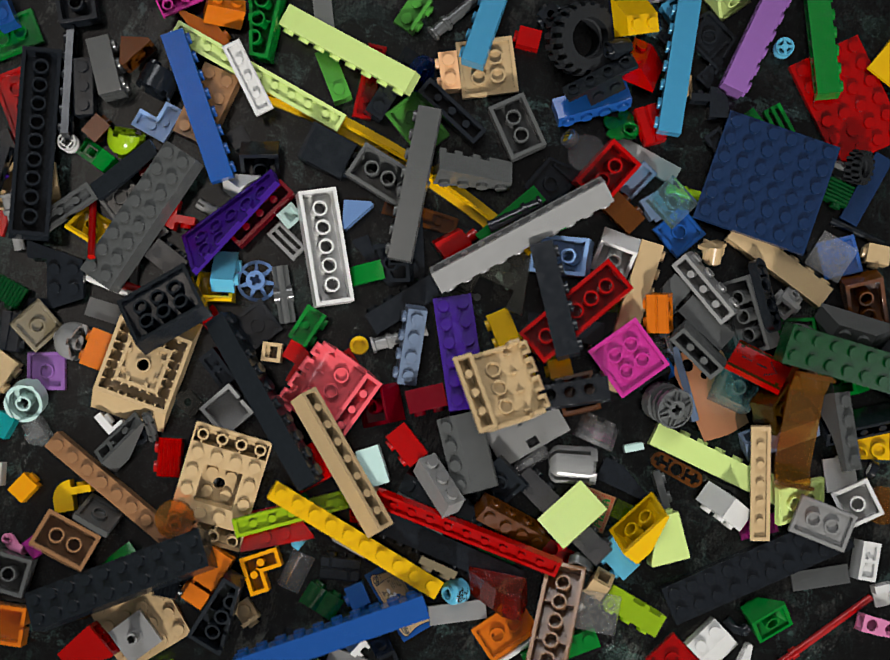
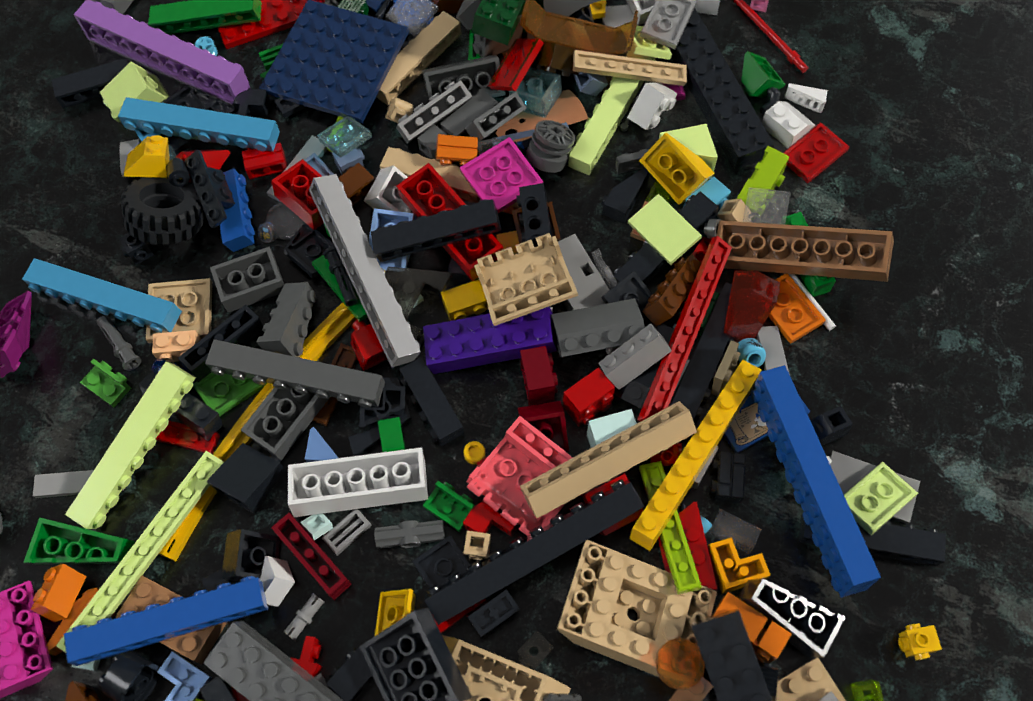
camera: 85 degrees left, 20 degrees down
(170, 457) = (602, 679): red brick -> none
(216, 230) = (323, 604): dark purple wing -> none
(225, 271) = (376, 599): medium azure brick -> none
(227, 408) = (544, 603): light grey piece -> none
(247, 77) = (142, 561): white tile -> none
(247, 613) = (794, 583): tan bracket -> none
(255, 280) = (390, 566): medium blue wheel -> none
(322, 599) = (767, 499): dark green brick -> none
(334, 78) = (162, 470): bright green slope -> none
(357, 595) = (761, 459): blue brick -> none
(387, 341) = (470, 417): light grey pin -> none
(410, 344) = (476, 389): sand blue brick -> none
(527, 39) = (155, 268): red brick -> none
(572, 463) = (611, 232): light grey cylinder -> none
(596, 432) = (578, 213): clear slope -> none
(619, 126) = (261, 185): green plate -> none
(632, 447) = (593, 183): light aqua tile -> none
(681, 237) = (382, 138): blue plate -> none
(691, 471) = (615, 141): reddish brown beam -> none
(764, 295) = (445, 61): black beam -> none
(788, 302) = (453, 49): light grey brick -> none
(820, 577) = (718, 30): dark grey tile -> none

